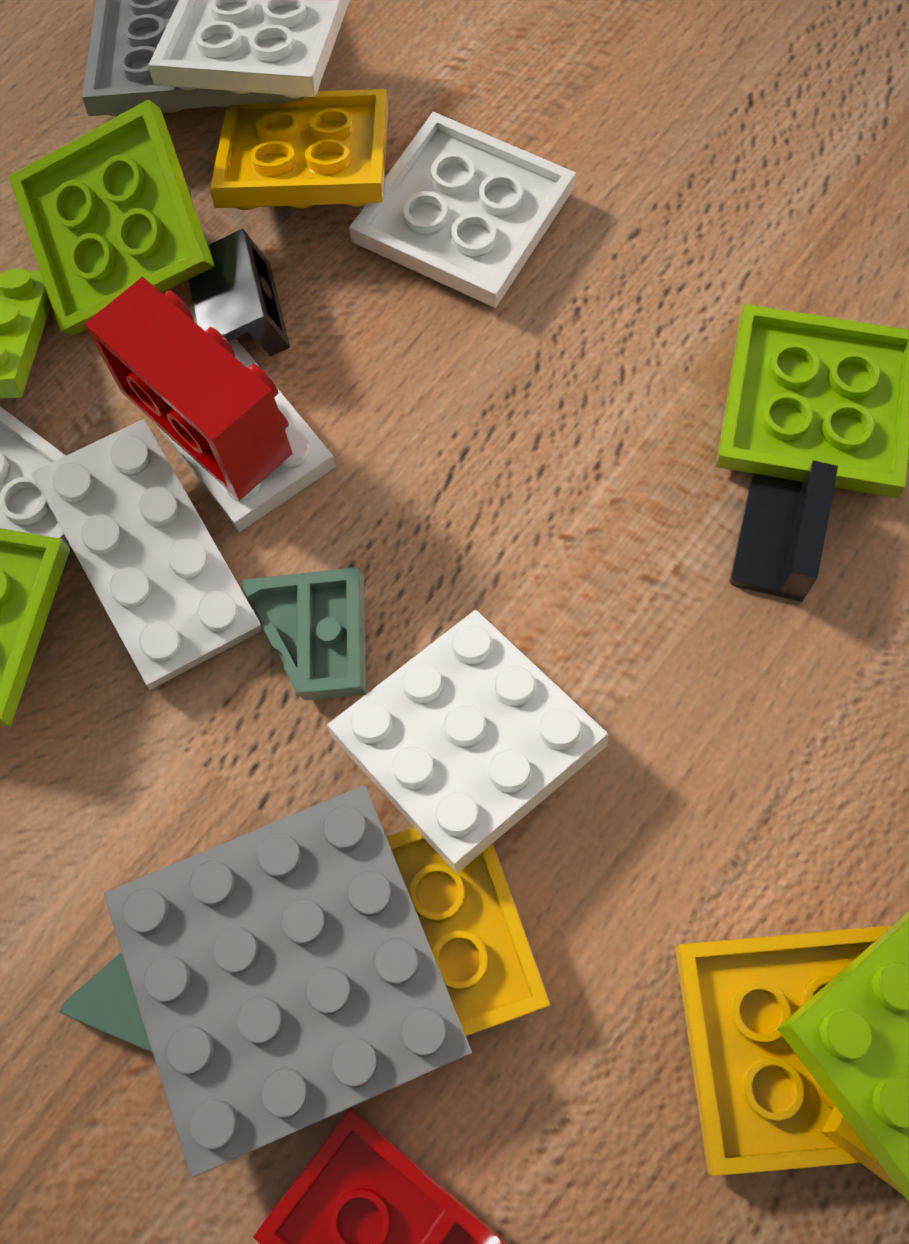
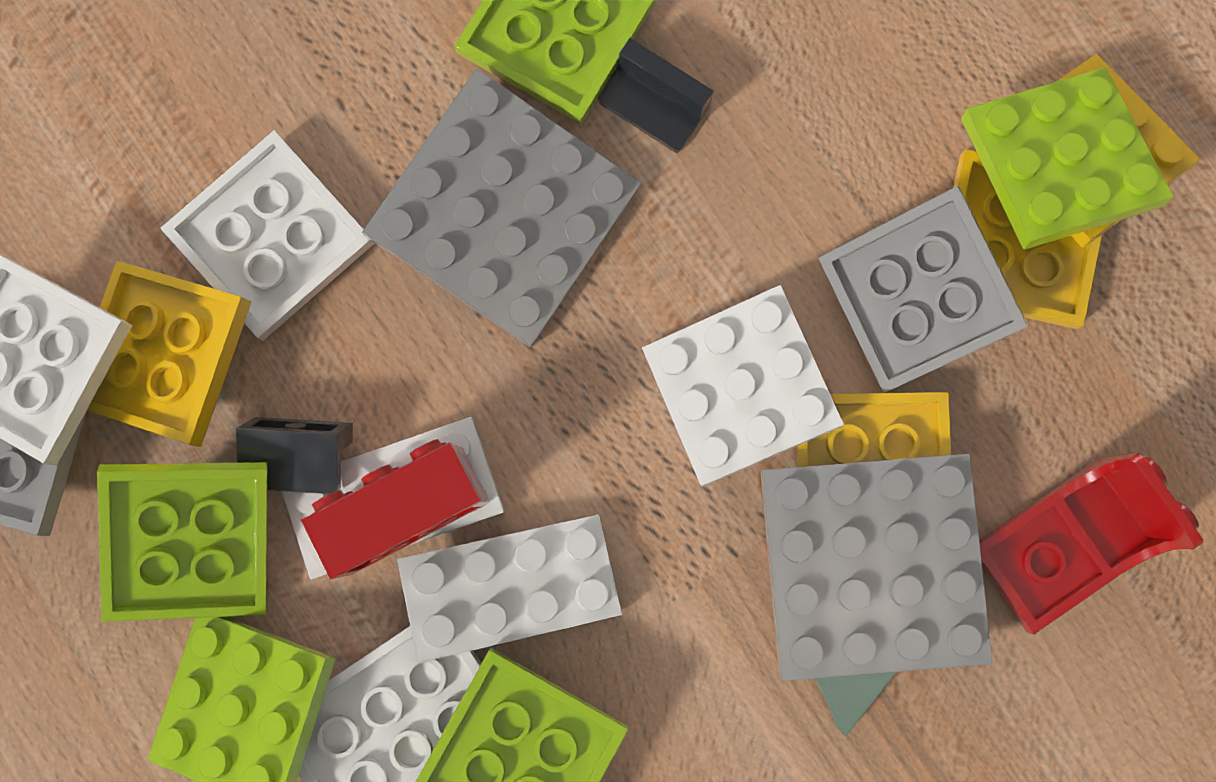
camera: 75 degrees left, 15 degrees up
(315, 628) = (616, 474): sand green wing -> none
(581, 412) = (501, 208): none -> light grey plate
(674, 924) = (923, 290): none -> light grey plate

